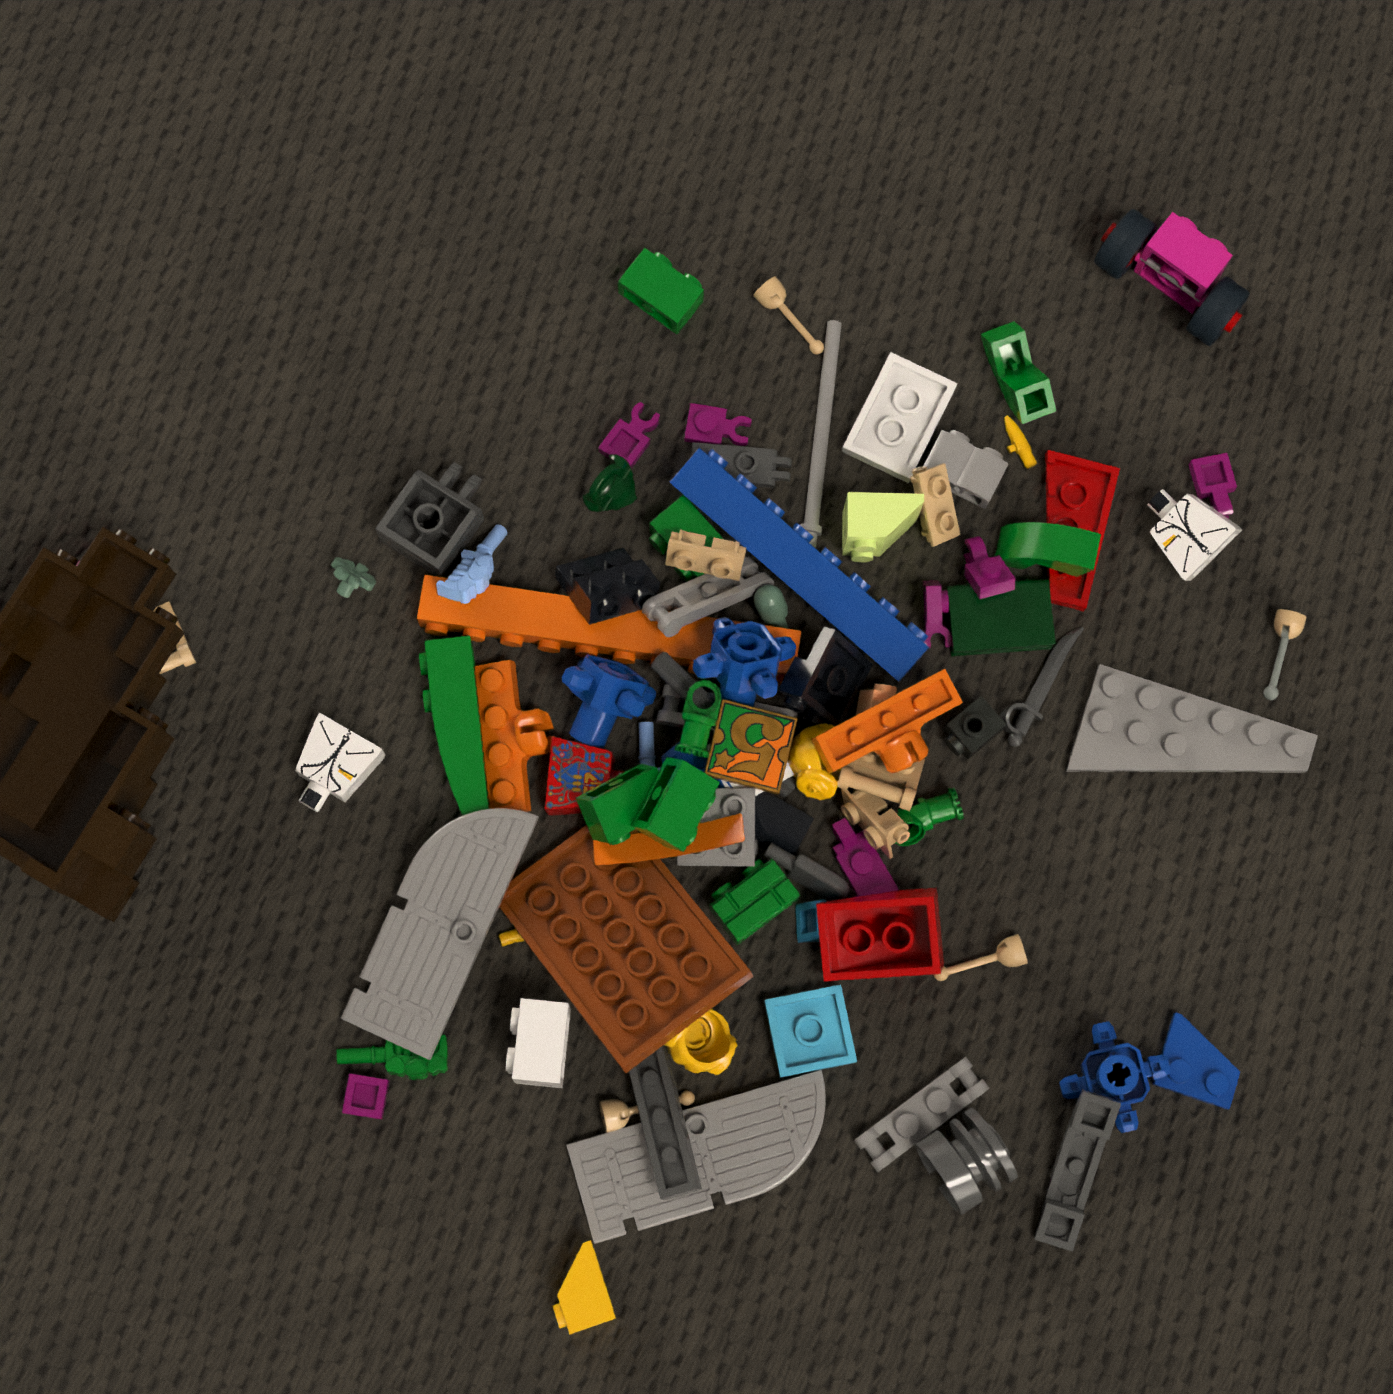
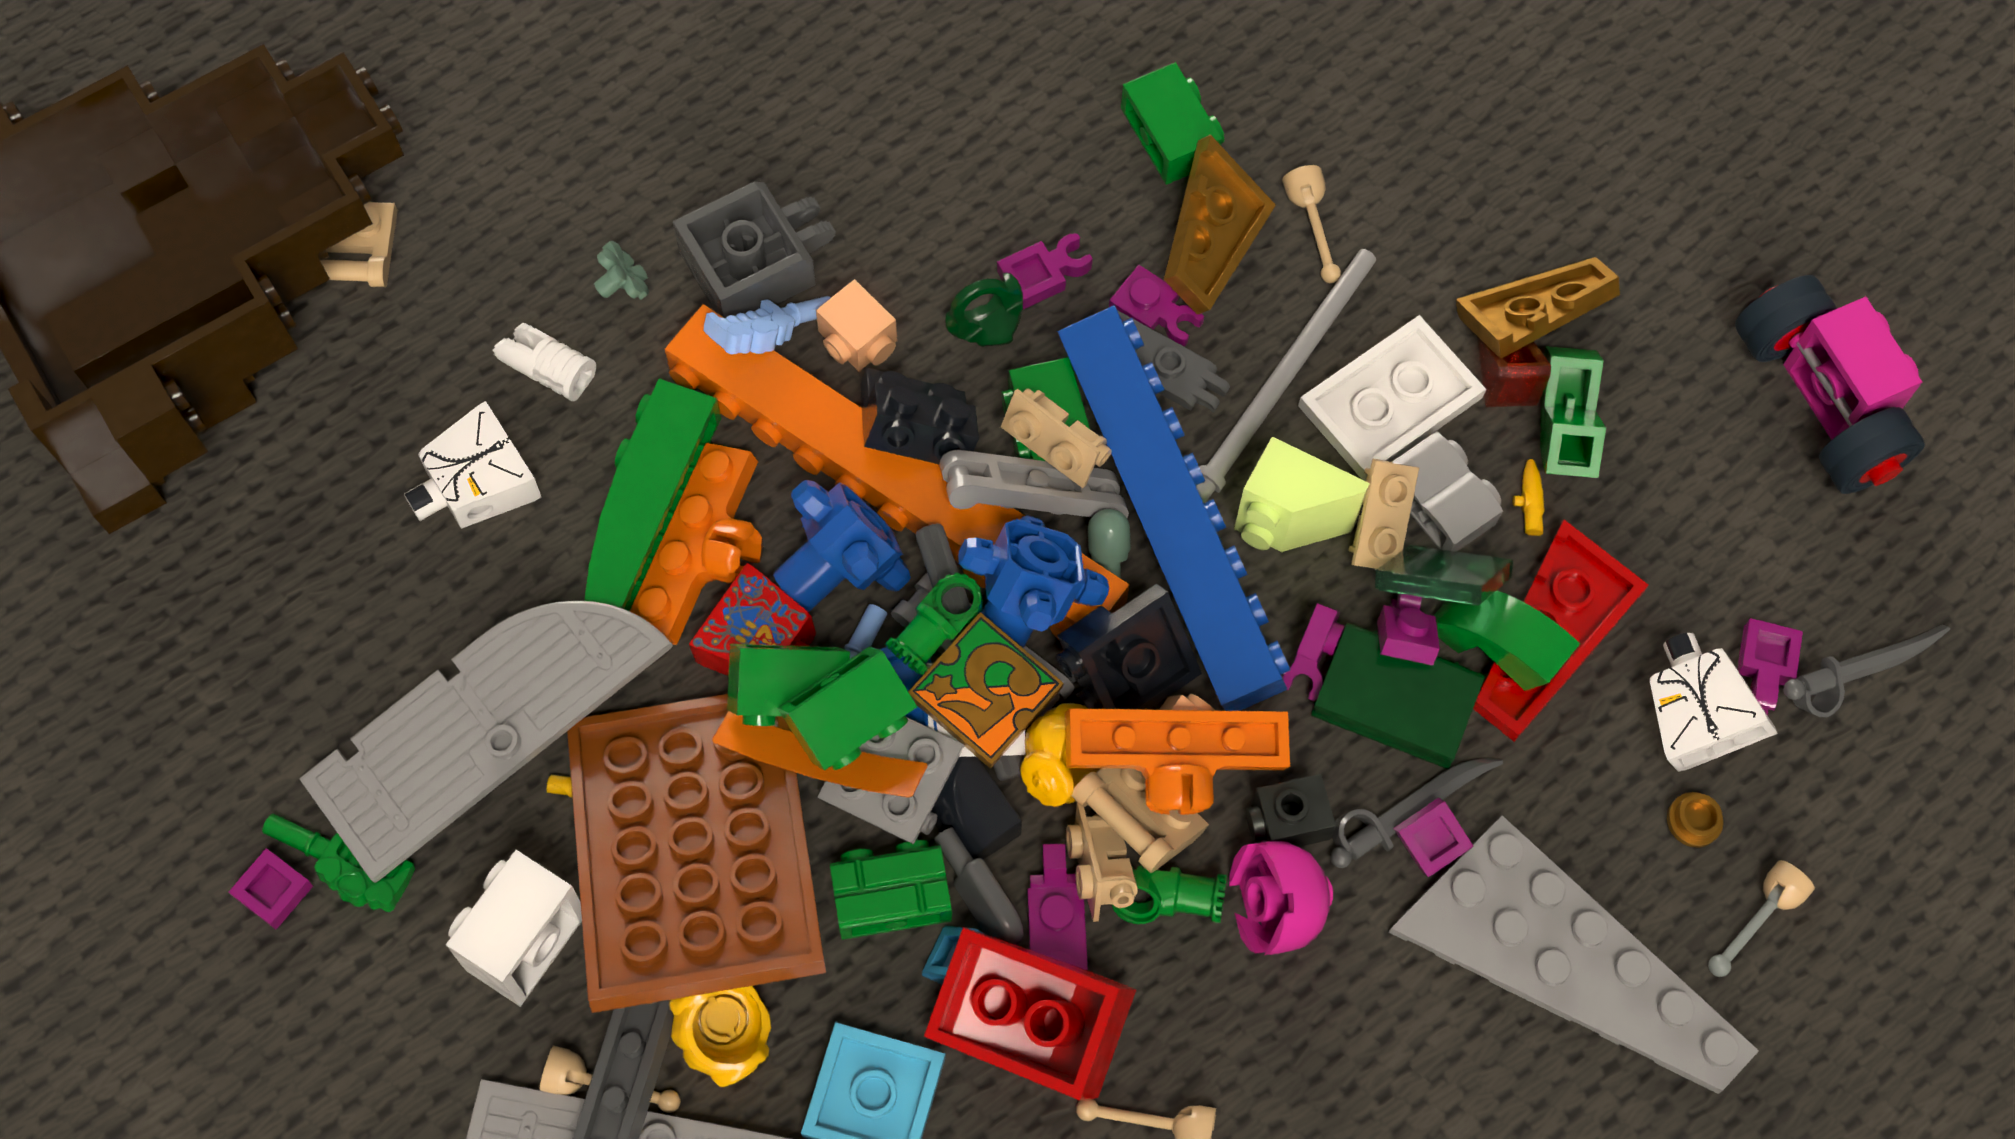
camera: 30 degrees right, 10 degrees down
(339, 662) = (547, 361): none -> white hinge
(531, 539) = (856, 327): none -> light nougat brick
(730, 354) = (1215, 226): none -> pearl gold wing
(961, 309) = (1536, 305): none -> pearl gold wing
(966, 359) = (1514, 378): none -> clear red slope
(993, 778) = (1280, 889): none -> dark pink cylinder
(994, 527) = (1443, 575): none -> clear green tile
(1065, 699) = (1433, 837): none -> magenta plate
(1215, 607) = (1695, 819): none -> pearl gold plate
(1256, 486) = (1830, 679): none -> dark grey sword

